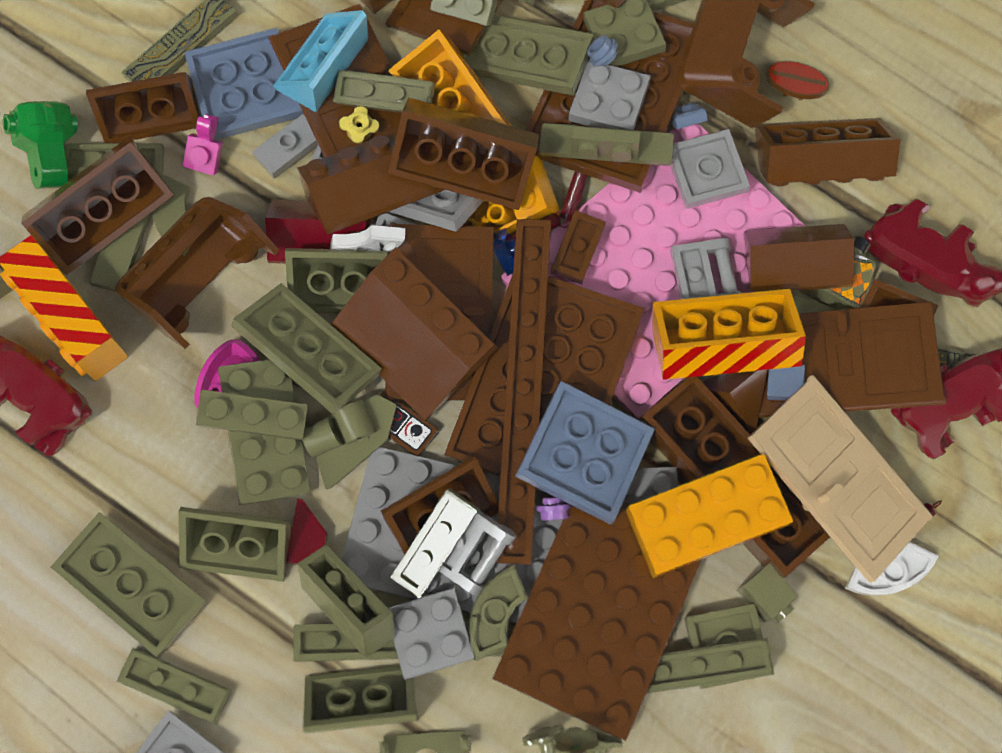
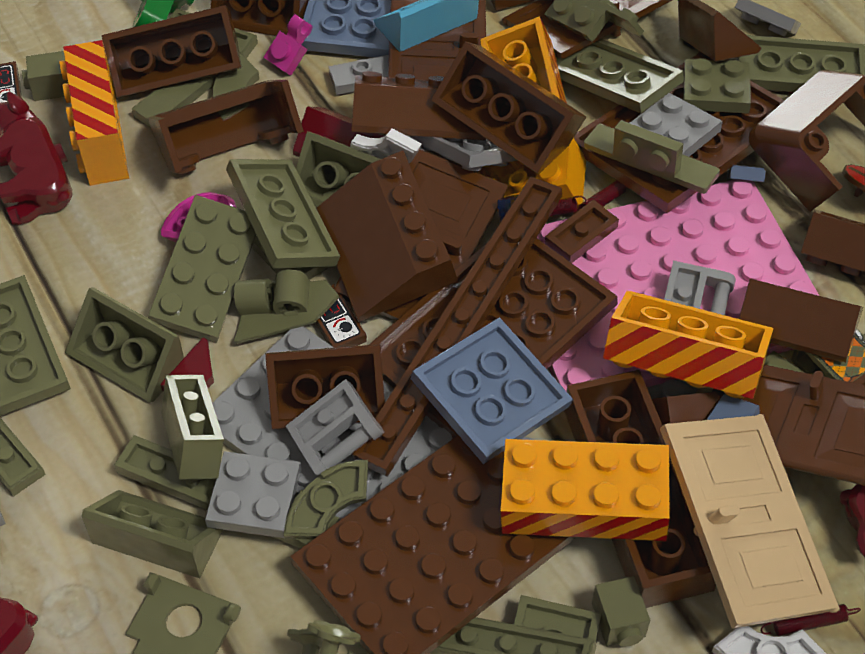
camera: 30 degrees right, 20 degrees down
(251, 415) = (200, 241): olive plate -> none
(362, 133) = (429, 67): light yellow plate -> none
(380, 91) = (446, 43): olive tile -> none
(434, 543) = (302, 408): tile -> none
(553, 508) = (436, 433): medium lavender plate -> none
(602, 51) = (684, 84): sand blue plate -> none
(708, 169) = (743, 215): light grey plate -> none

